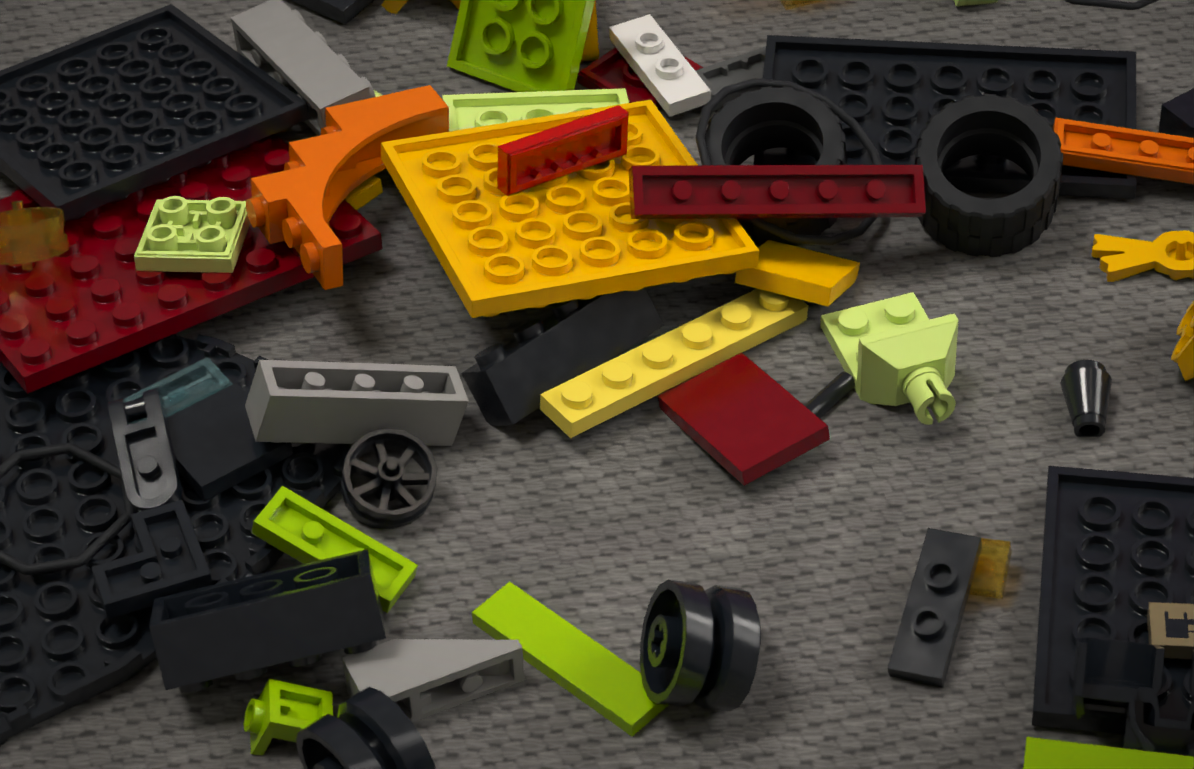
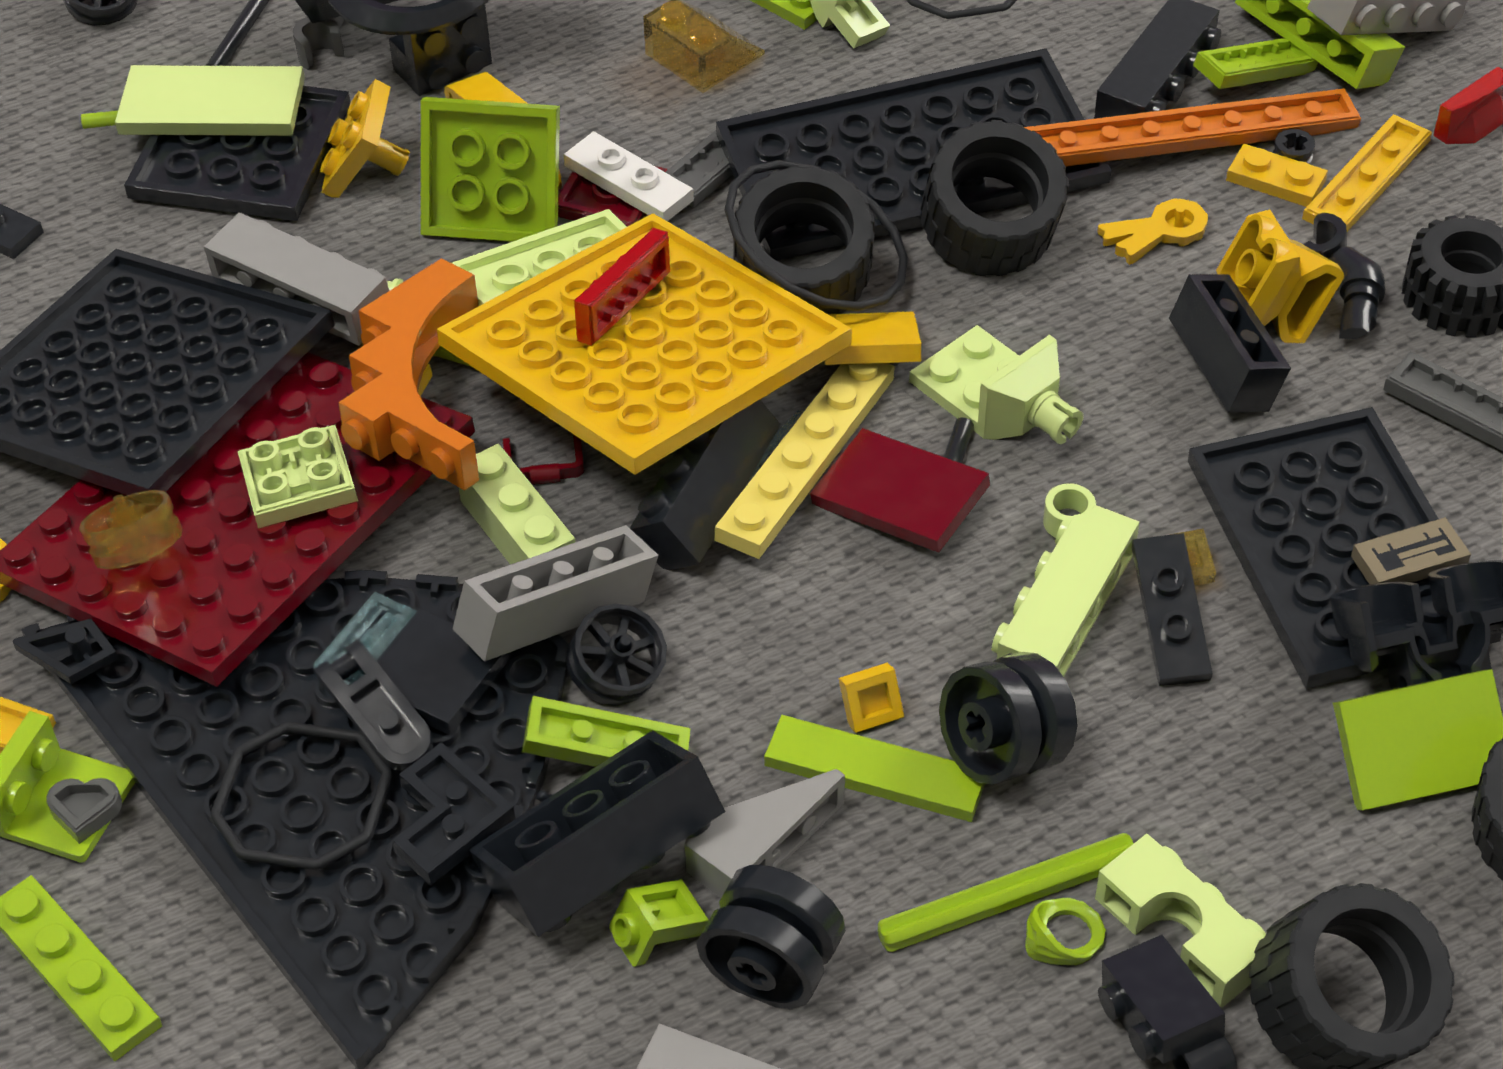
camera: 25 degrees left, 5 degrees up
(371, 315) = (512, 509): none -> yellowish green brick
(422, 304) = (551, 472): none -> dark red piece
(598, 592) = (871, 697): none -> yellow tile
(776, 191) = (835, 269): dark red plate -> none
(845, 557) = (1071, 580): none -> yellowish green hinge
(1087, 395) = (1181, 375): black cone -> none
(1147, 379) = (1229, 343): none -> black brick

